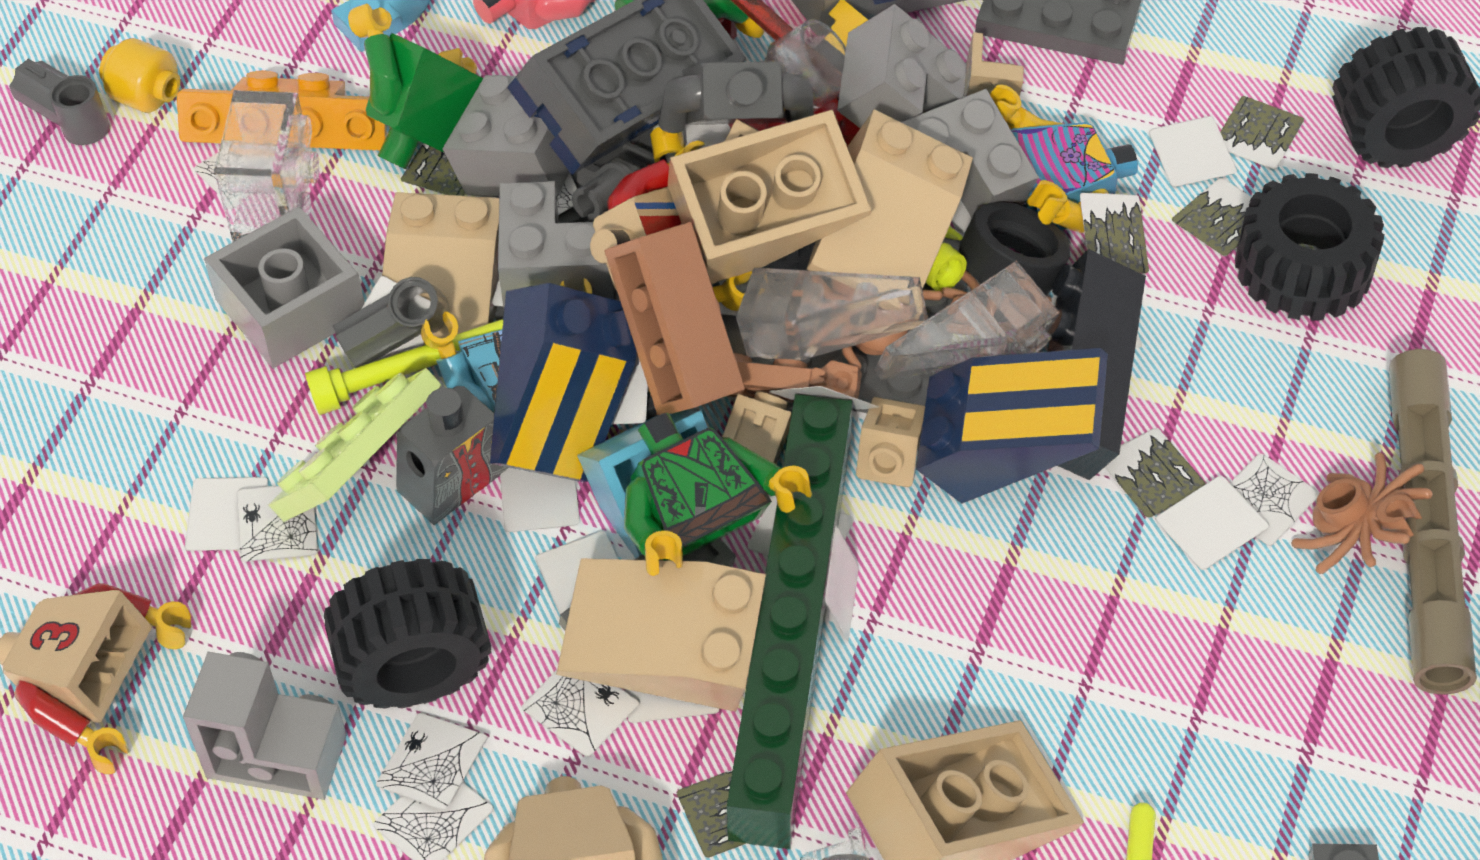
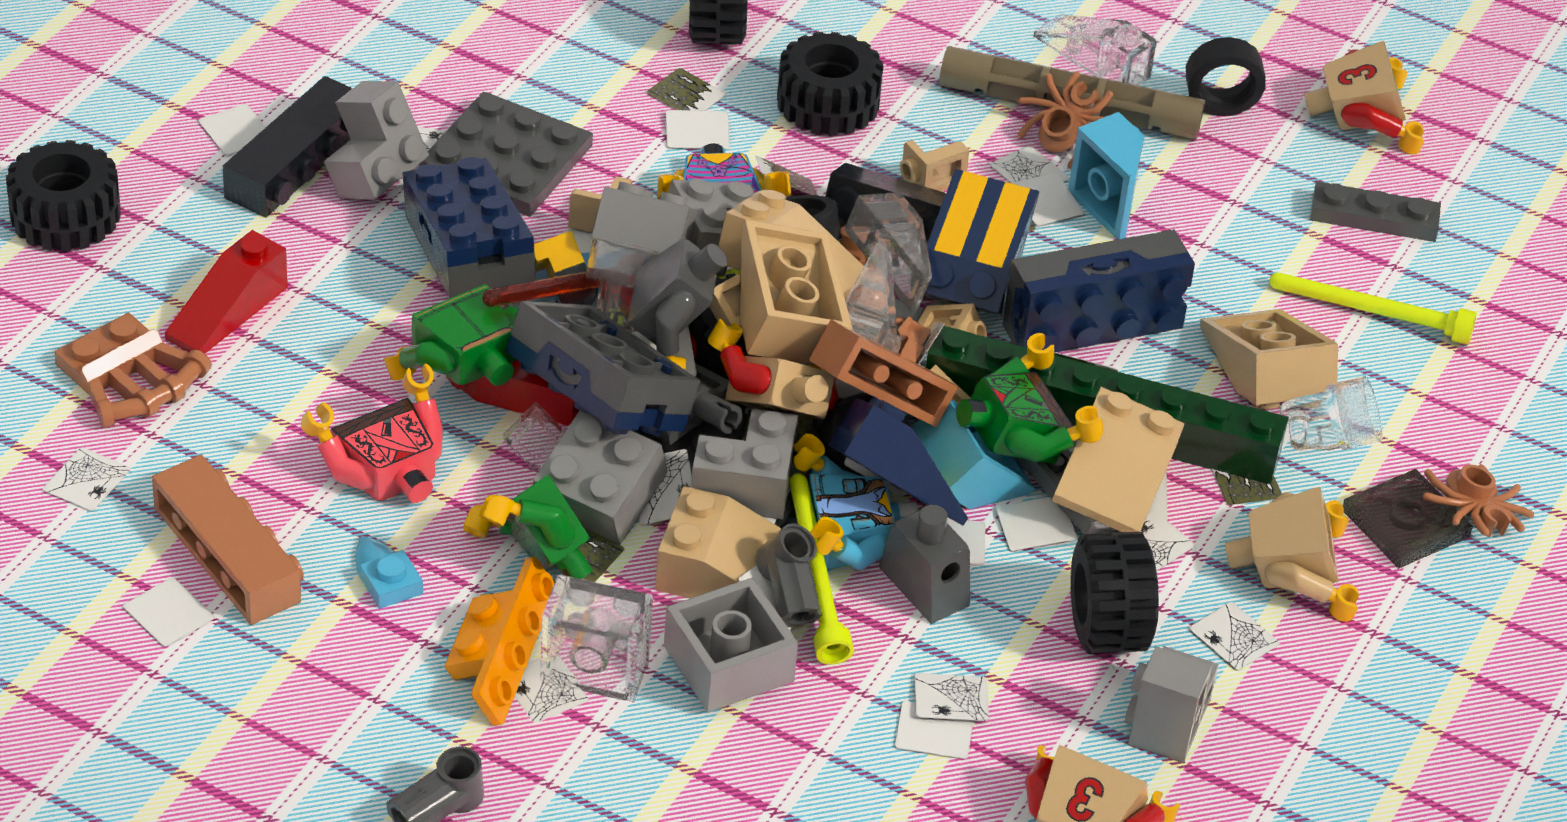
camera: 85 degrees left, 10 degrees down
(139, 75) = (422, 735): yellow head -> none
(350, 445) = (918, 612): yellowish green plate -> none
(431, 761) = (1191, 627): white sticker -> none
(984, 573) = (1099, 292): none -> dark blue piece
(1197, 384) = (934, 167): none -> tan bracket
(1216, 216) = (766, 130): sticker -> none
(1243, 564) = (1107, 170): none -> medium azure slope

